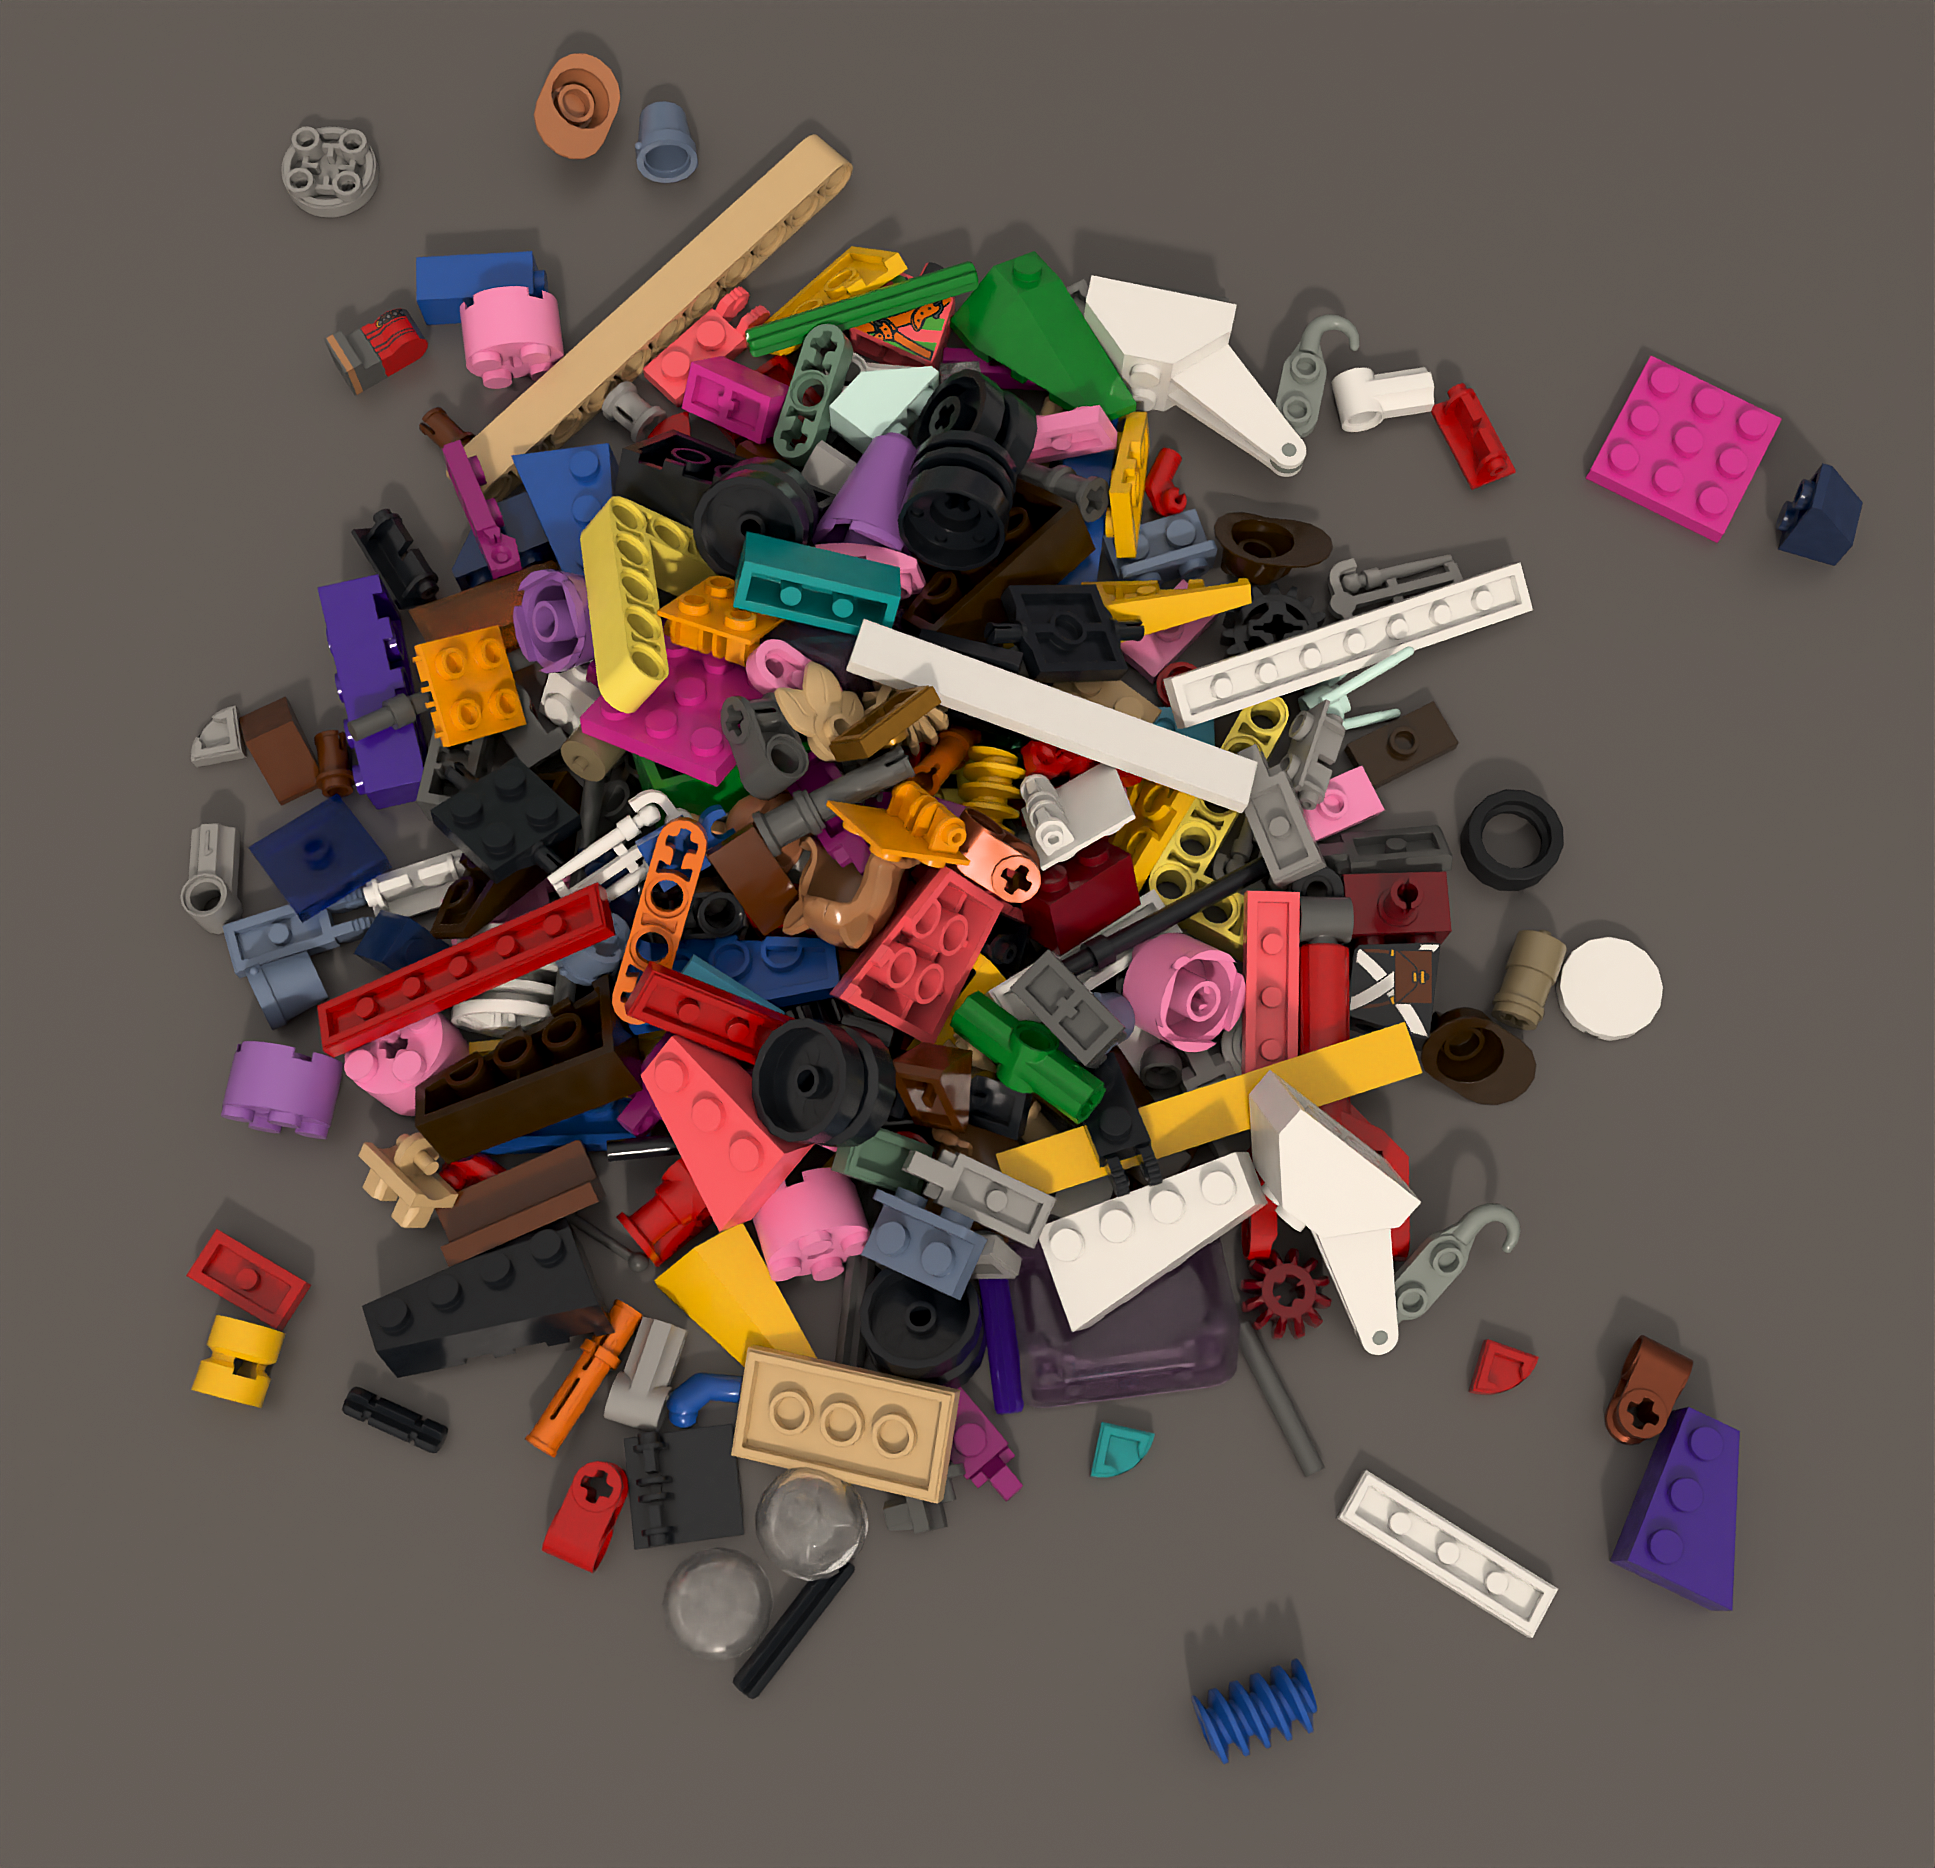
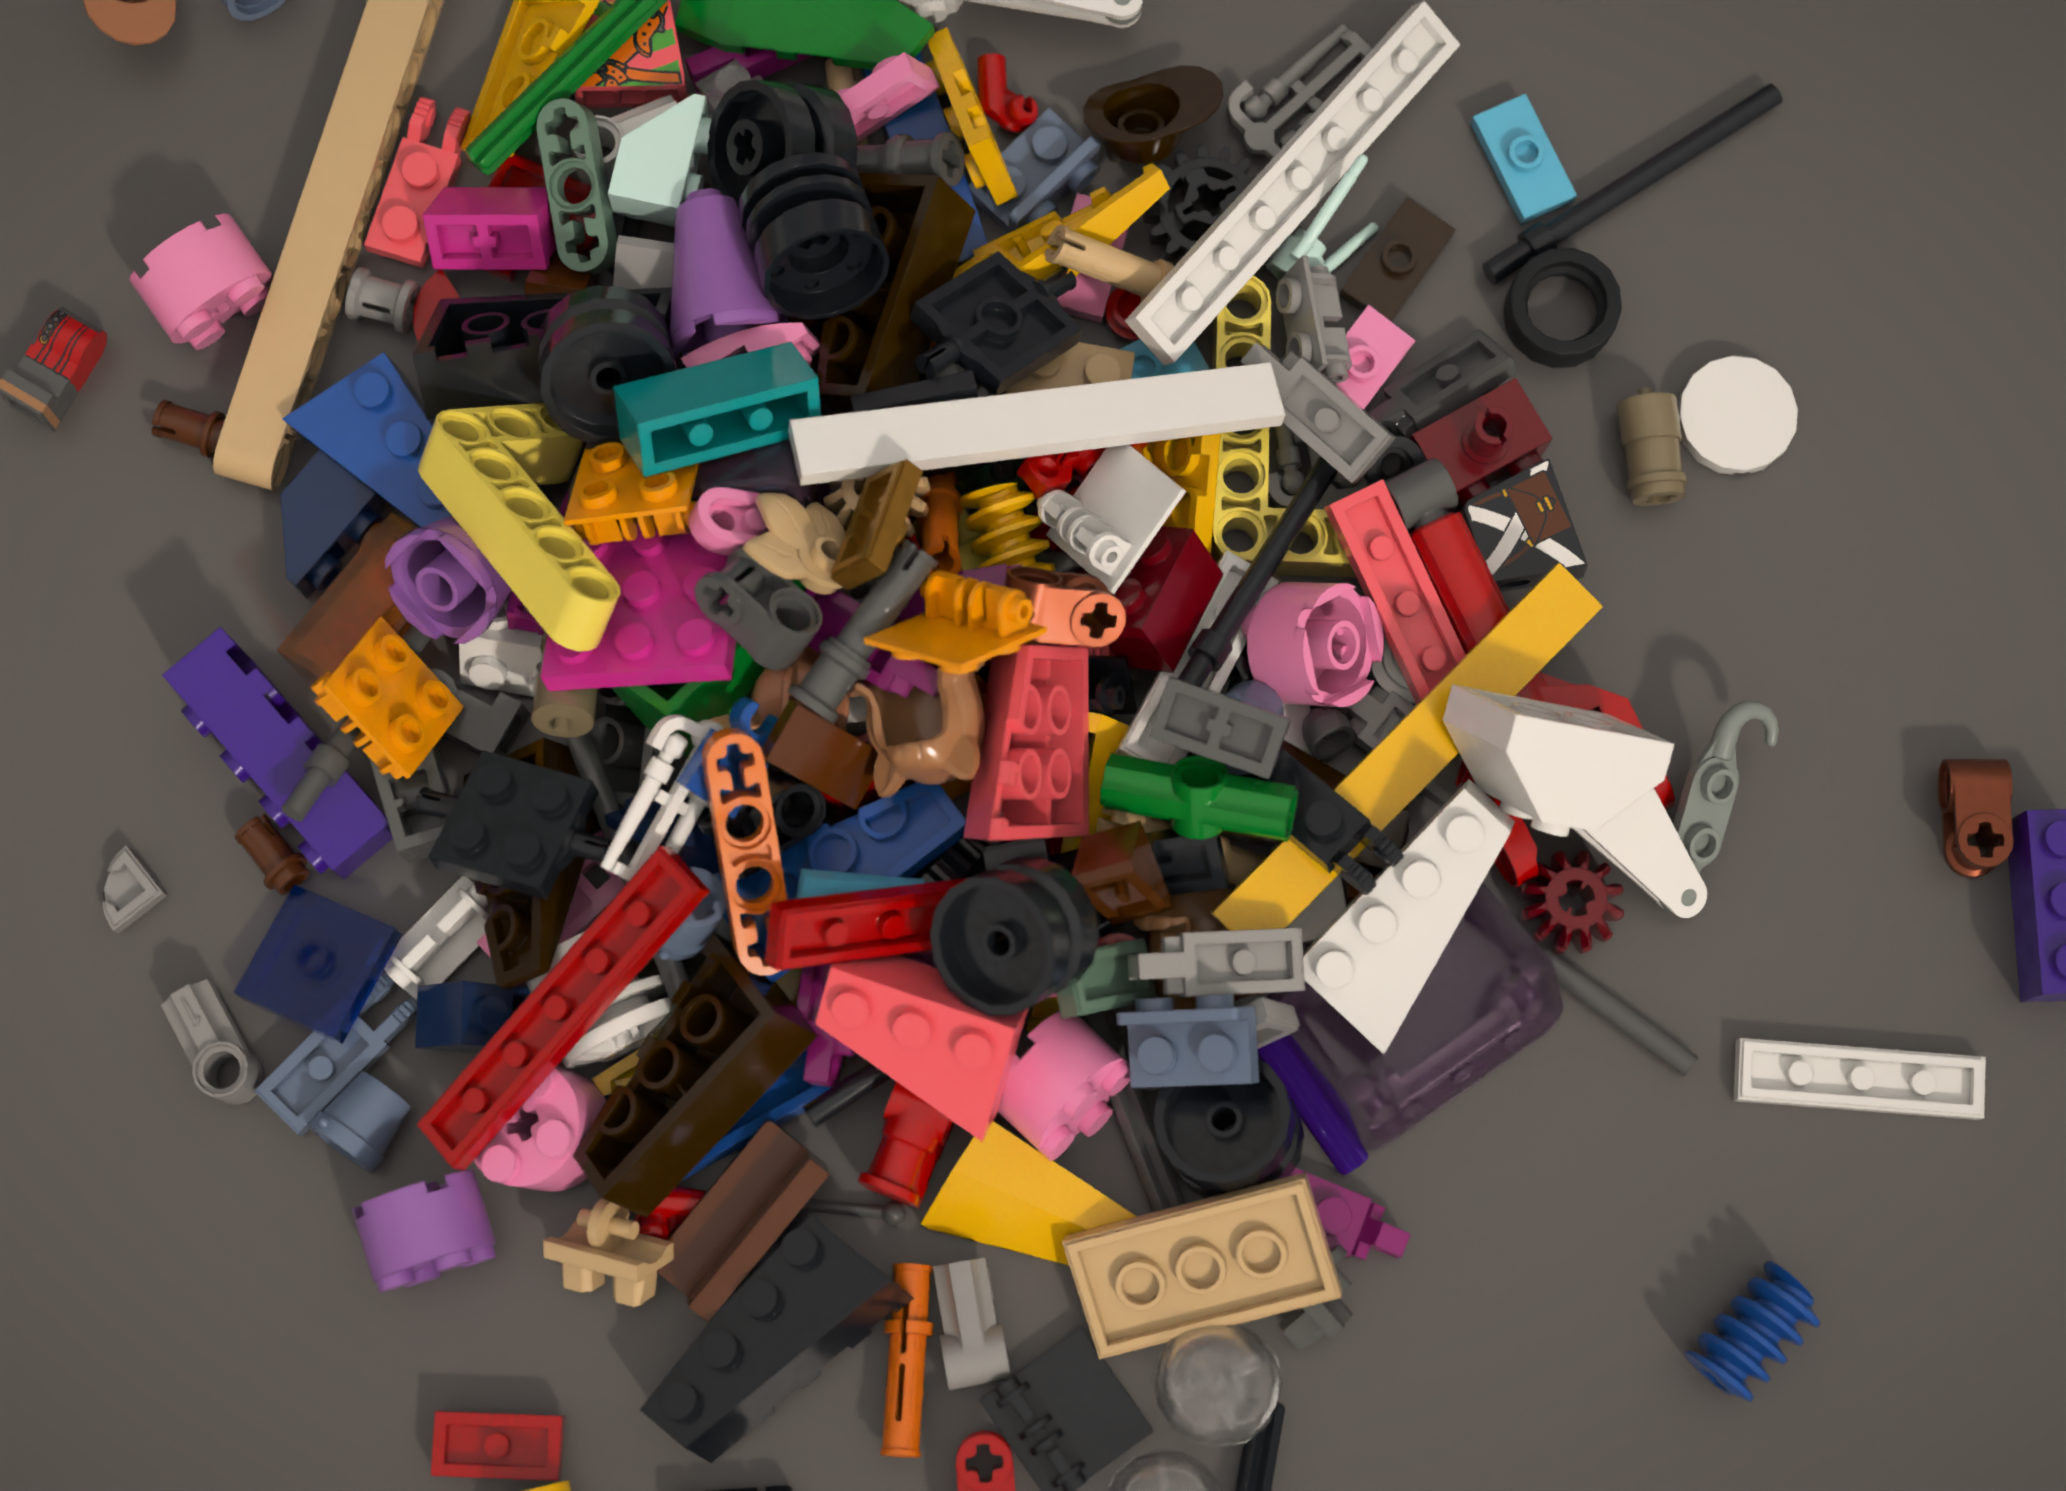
camera: 30 degrees left, 5 degrees up
(281, 750) = (204, 867): reddish brown slope -> none
(402, 572) = (195, 588): black hinge -> none
(454, 279) = (112, 244): blue brick -> none
(482, 515) = (290, 502): magenta hinge -> none
(697, 1392) = (1029, 1313): blue arm -> none
(1119, 1450) = (1484, 1147): teal tile -> none
(1172, 631) = (1105, 262): none -> tan pin
(1477, 1057) = (1642, 556): dark brown piece -> none
(1500, 1368) = (1820, 865): red tile -> none
(1539, 717) = (1523, 159): none -> medium azure plate
(1616, 775) = (1544, 237): none -> black bar

